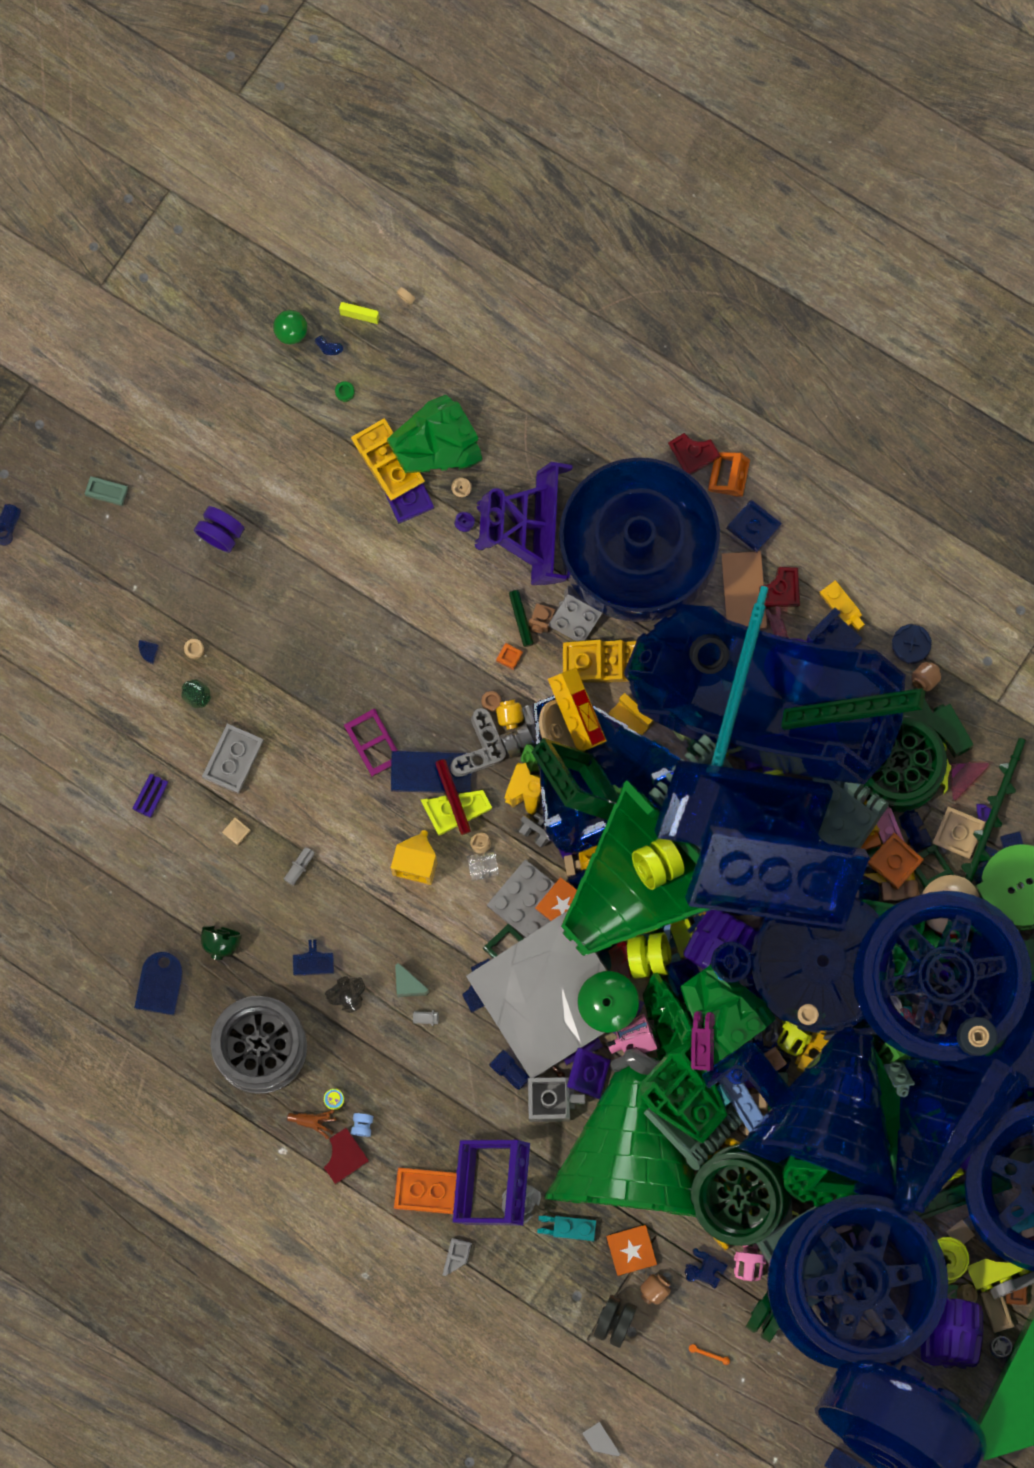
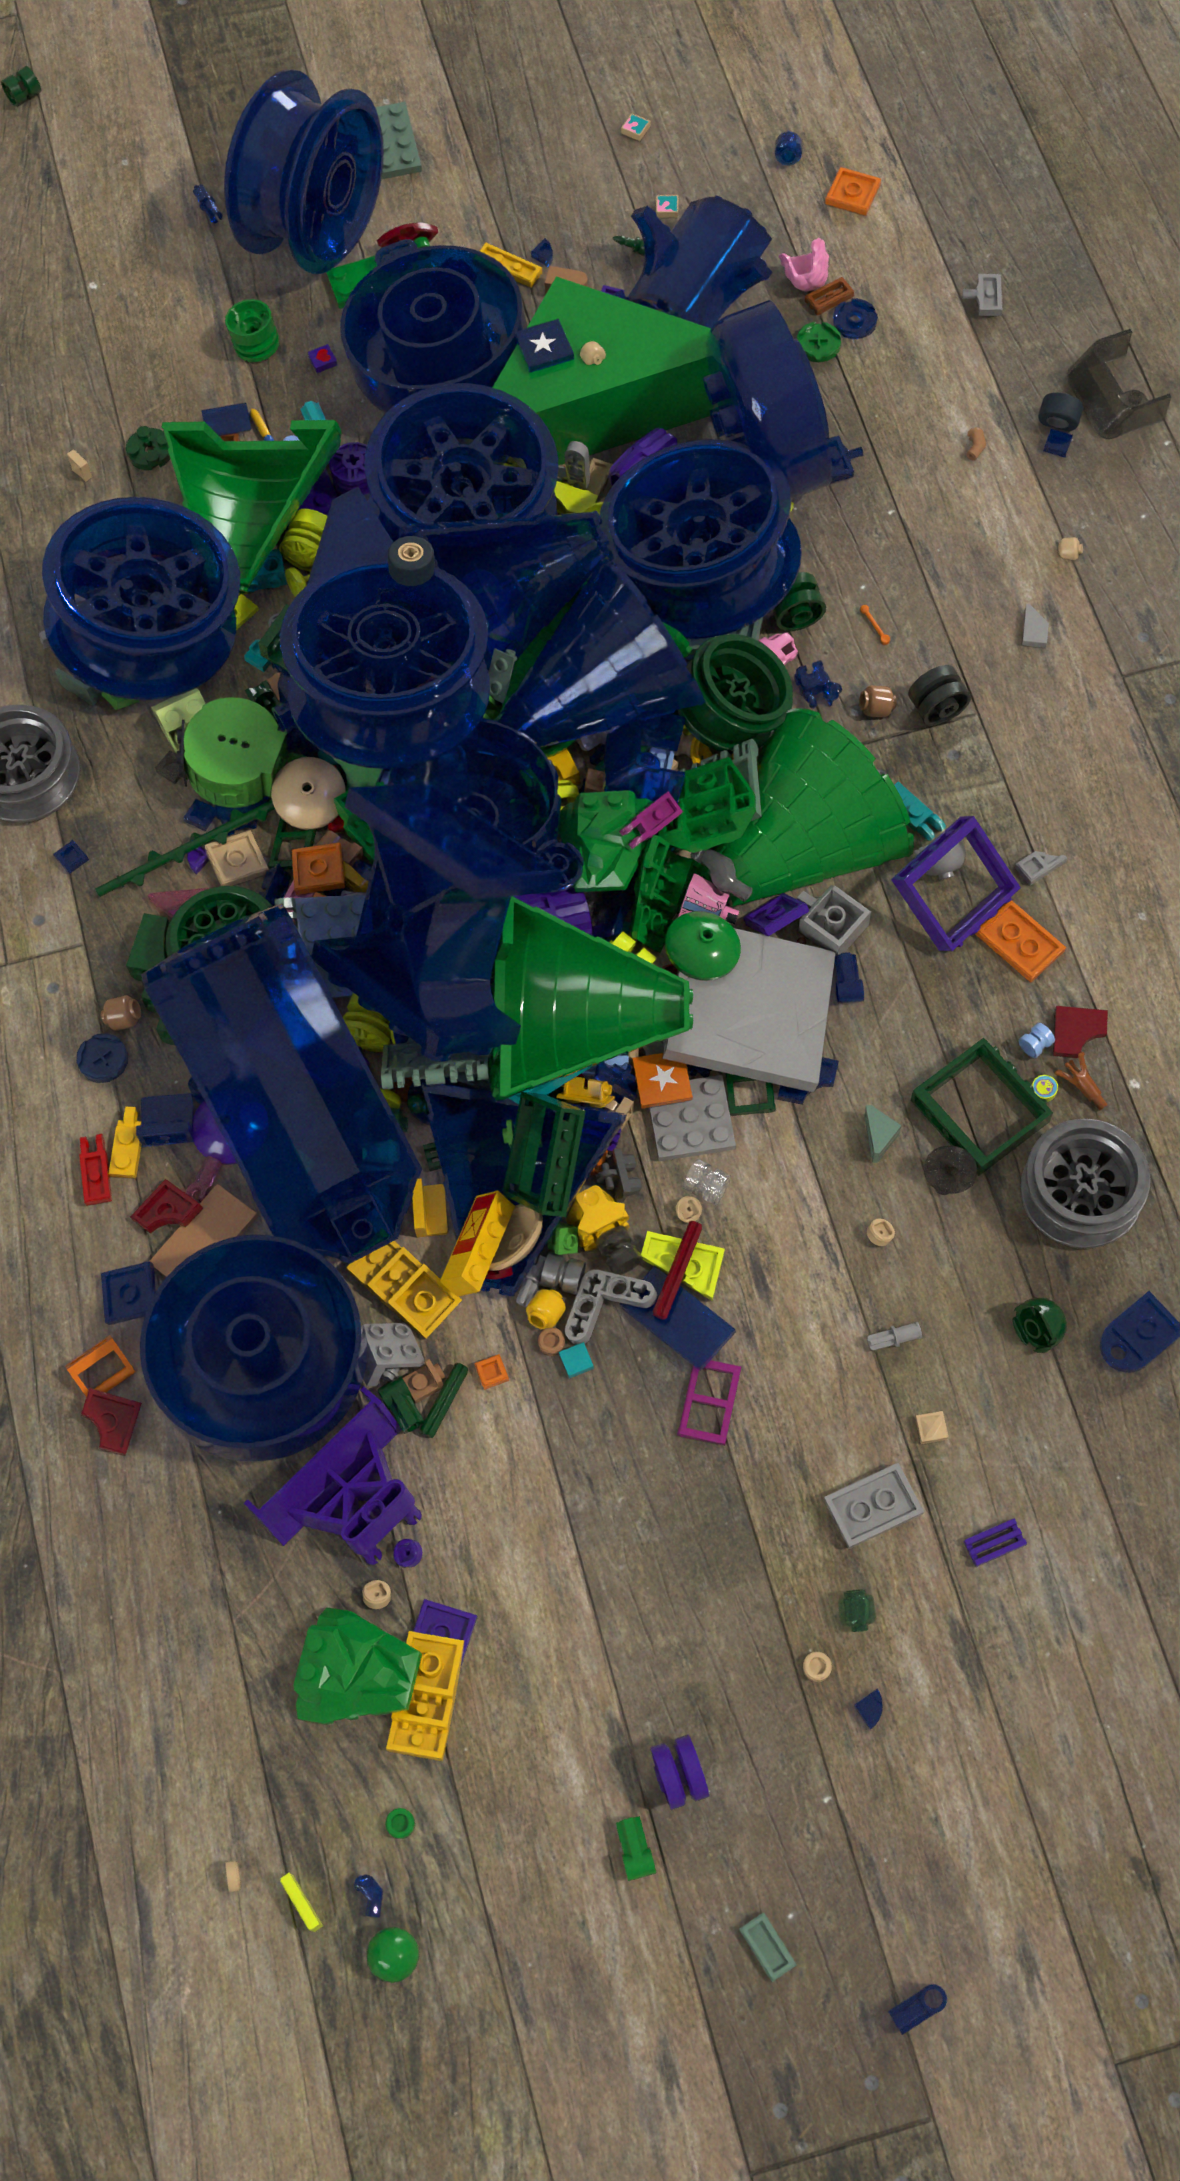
camera: 140 degrees left, 10 degrees down
(208, 475) = (637, 1855): none -> green piece
(313, 962) = (958, 1229): clear blue plate -> none
(357, 922) = (880, 1232): none -> tan tile
(367, 1020) = (1007, 1073): none -> dark green window
(415, 859) = (771, 1237): yellow piece -> none
(426, 1017) = (888, 1089): light grey pin -> none
(467, 702) = (576, 1360): none -> teal tile
(496, 781) = (619, 1252): none -> clear smoke wheel
(545, 595) = (398, 1399): none -> dark green piece
(631, 1250) = (879, 743): orange tile -> none
(658, 863) = (542, 1019): neon yellow wheel -> none
(719, 664) = (294, 1199): black tyre -> none
(740, 679) = (298, 1108): teal axle -> none
(808, 1014) = (534, 756): tan tile -> none
(844, 575) = (95, 1172): none -> red hinge
(853, 709) = (219, 995): dark green tile -> none
(1000, 1347) = (617, 445): flat silver wheel -> none

